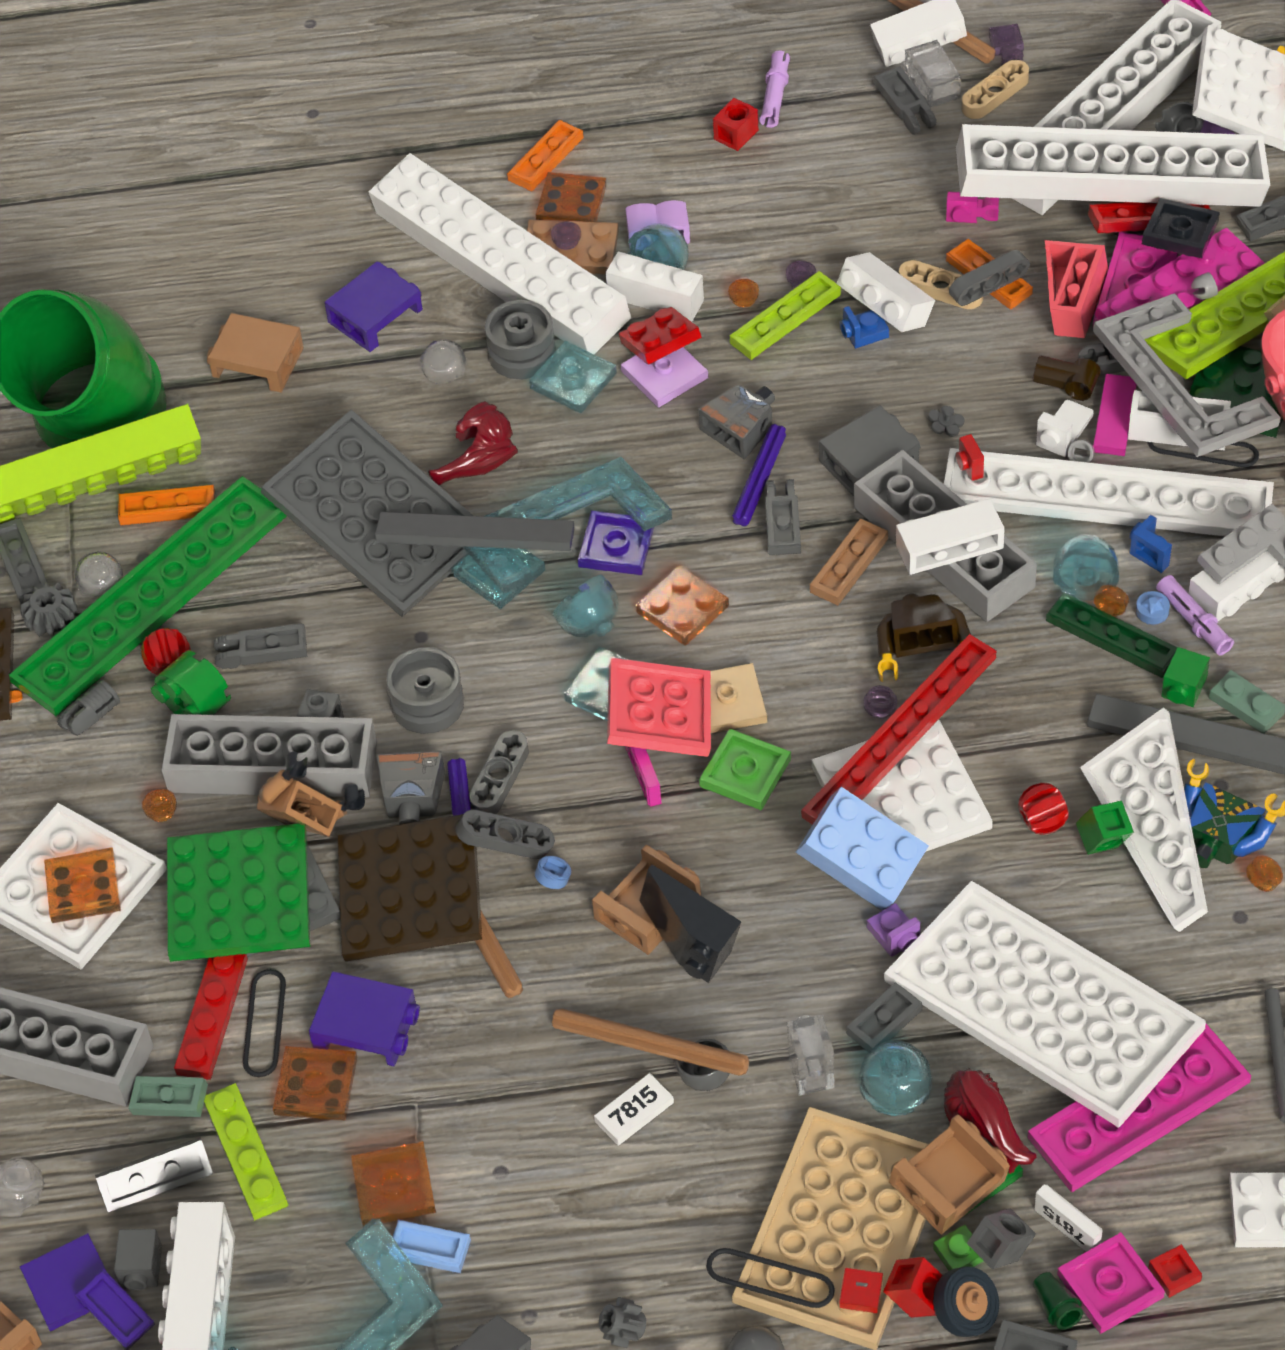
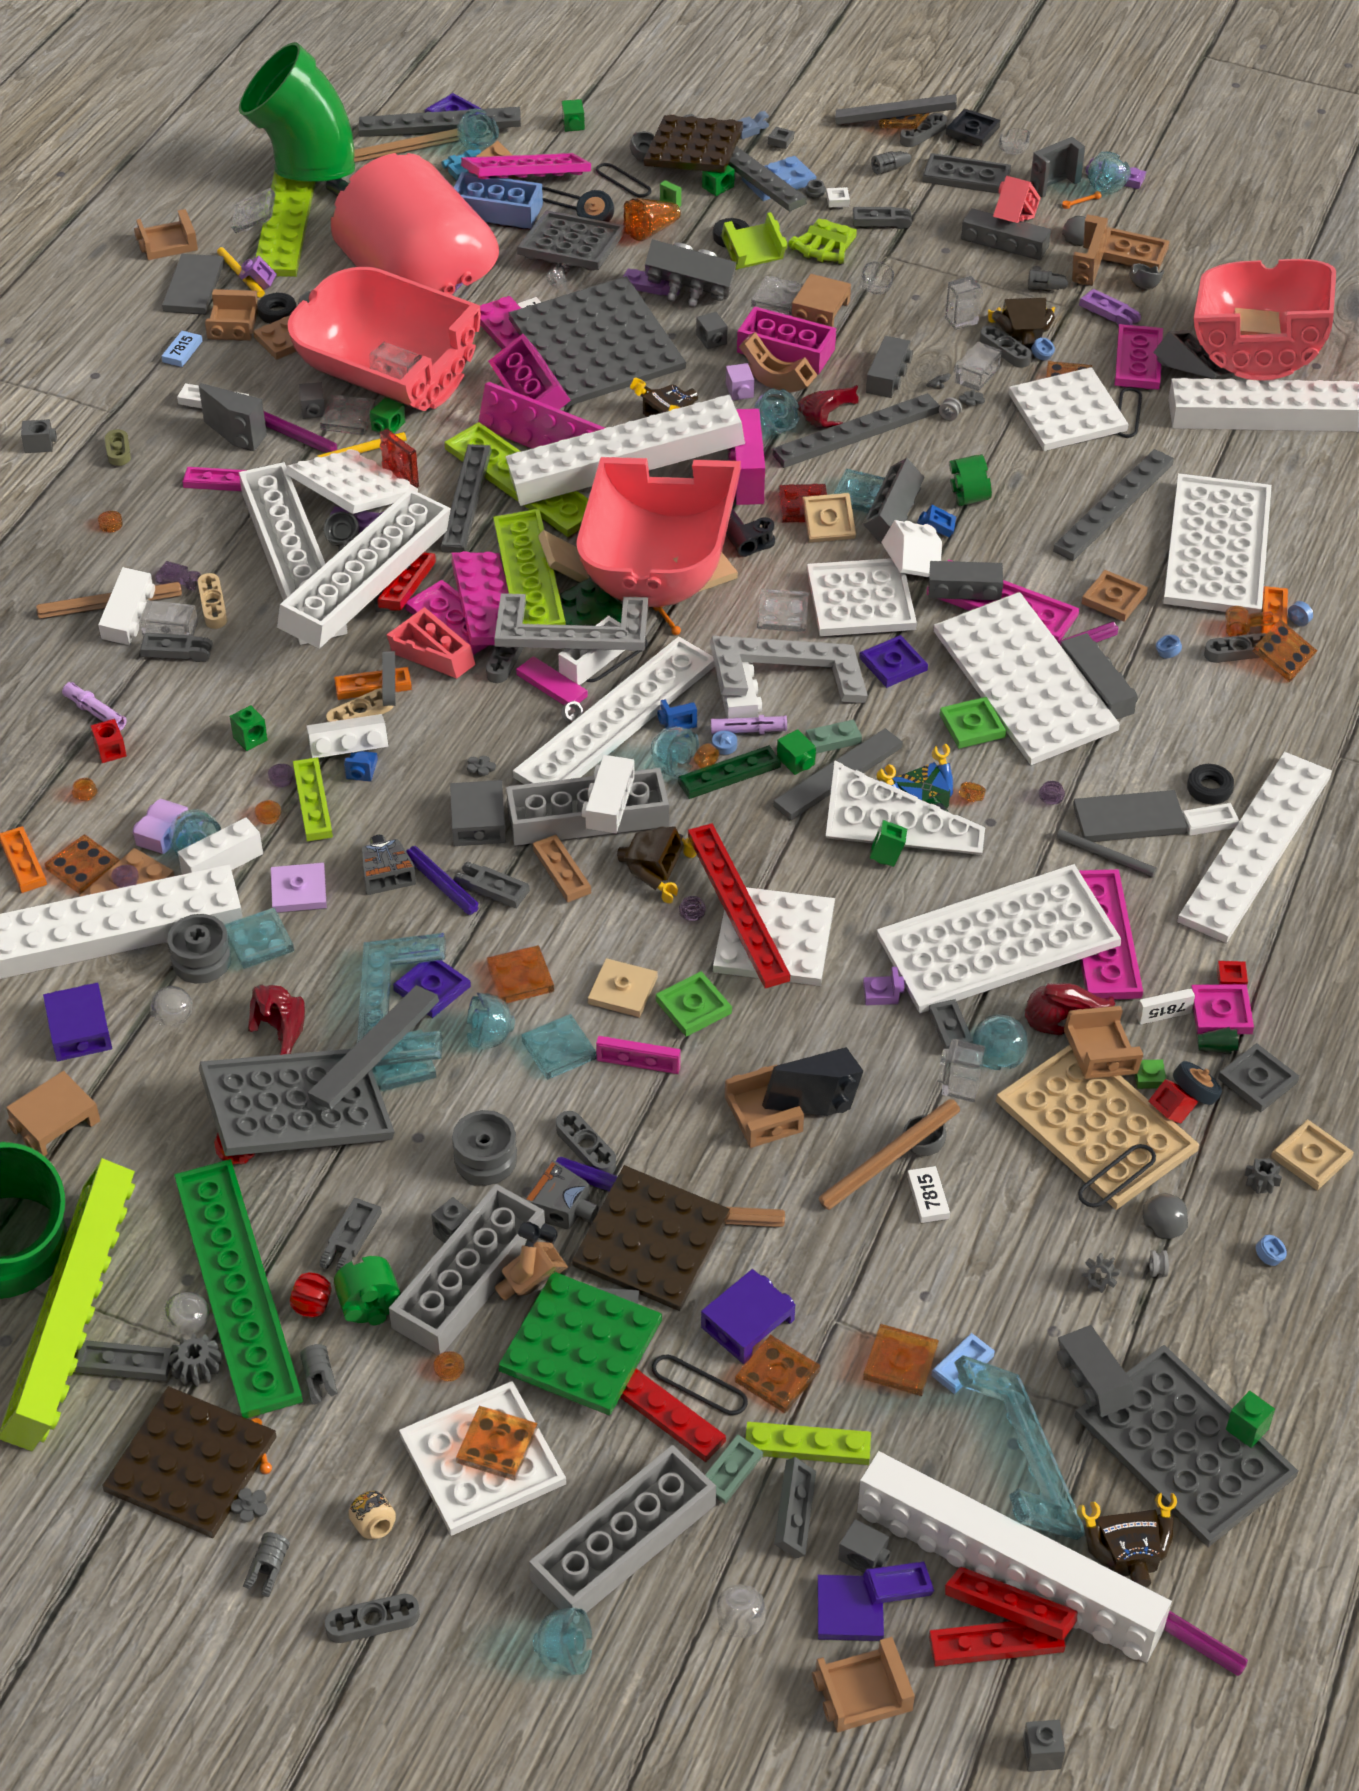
camera: 65 degrees left, 5 degrees down
(164, 504) = (150, 1240): orange tile -> none
(492, 840) = (654, 1156): dark grey beam -> none
(552, 872) = (699, 1149): medium blue tile -> none
(659, 335) = (269, 871): red plate -> none
(659, 707) = (616, 1017): coral plate -> none
(662, 145) = (84, 789): none -> clear orange plate
(835, 213) = (248, 728): none -> green brick
(861, 1290) = (1158, 1130): red tile -> none
(862, 849) = (822, 964): light blue brick -> none
(969, 208) = (307, 663): dark pink plate -> none
(970, 457) = (539, 759): red plate -> none
(1001, 1238) = (1163, 1042): dark grey brick -> none
(1043, 808) = (847, 867): red piece -> none
(1064, 428) = (544, 711): white bracket -> none
(1076, 378) = (506, 683): dark brown piece -> none
(1180, 228) = (443, 566): black plate -> none
(1205, 286) = (499, 580): light grey hinge -> none

